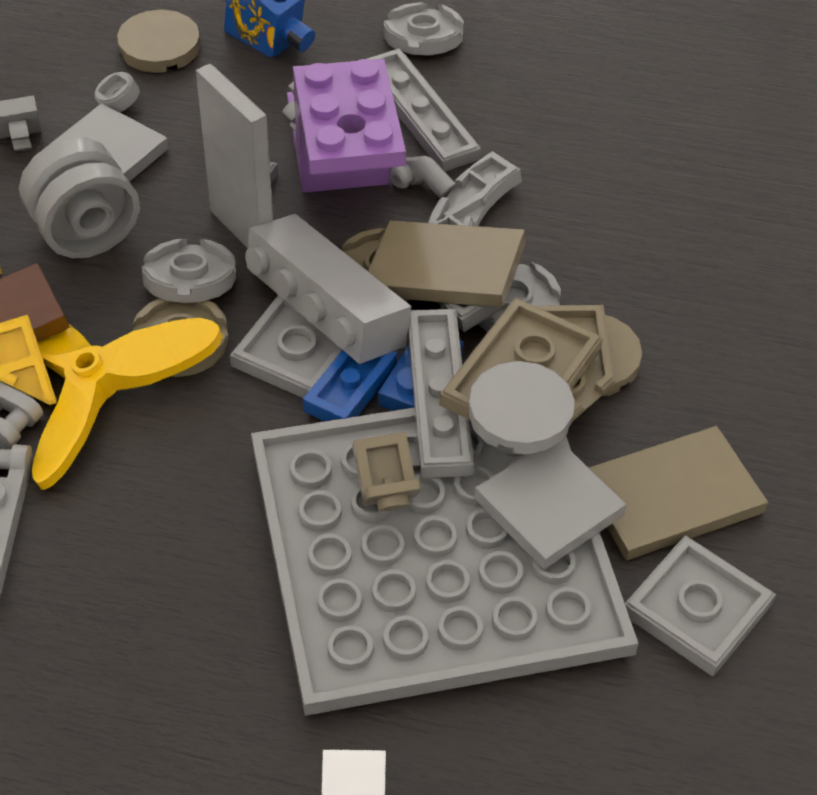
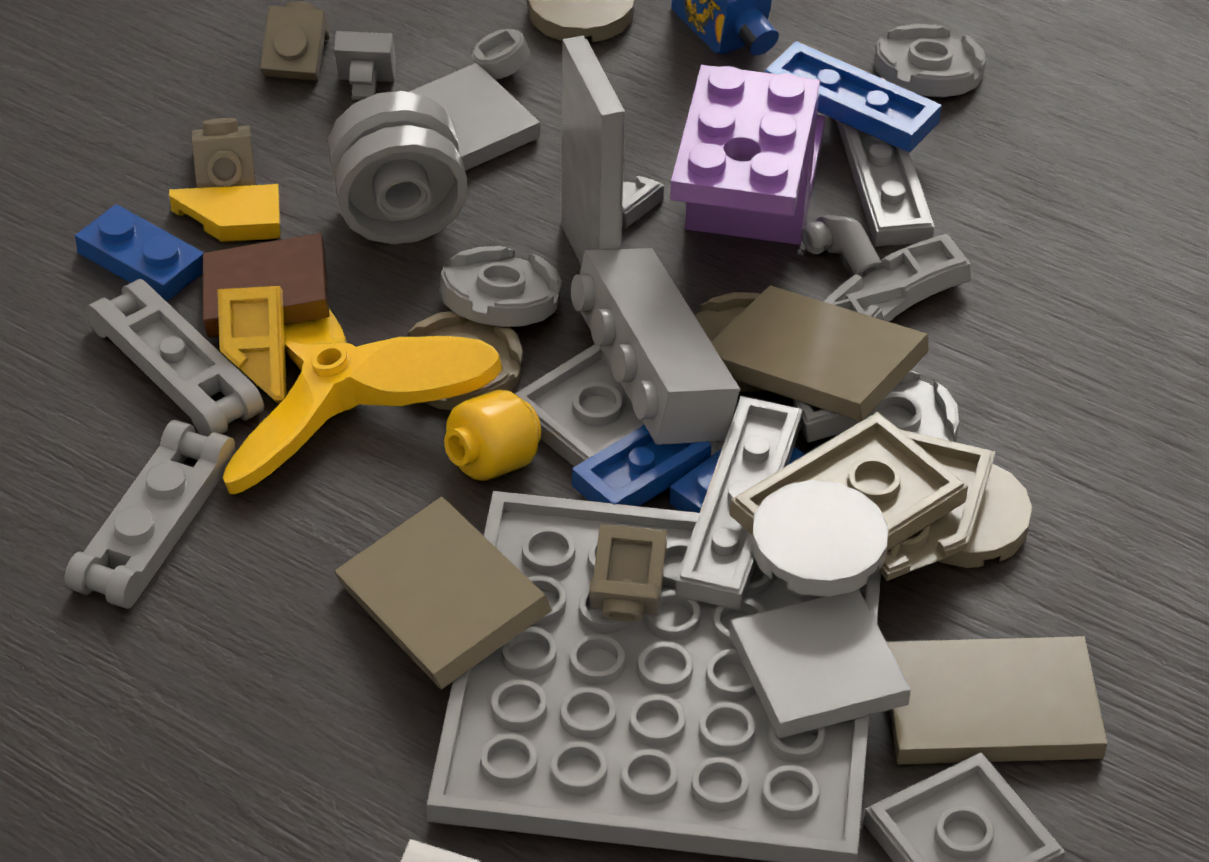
camera: 20 degrees right, 5 degrees down
(231, 388) = (492, 435): none -> yellow head
(247, 526) = (443, 592): none -> dark tan tile
(406, 68) = (862, 98): none -> blue plate

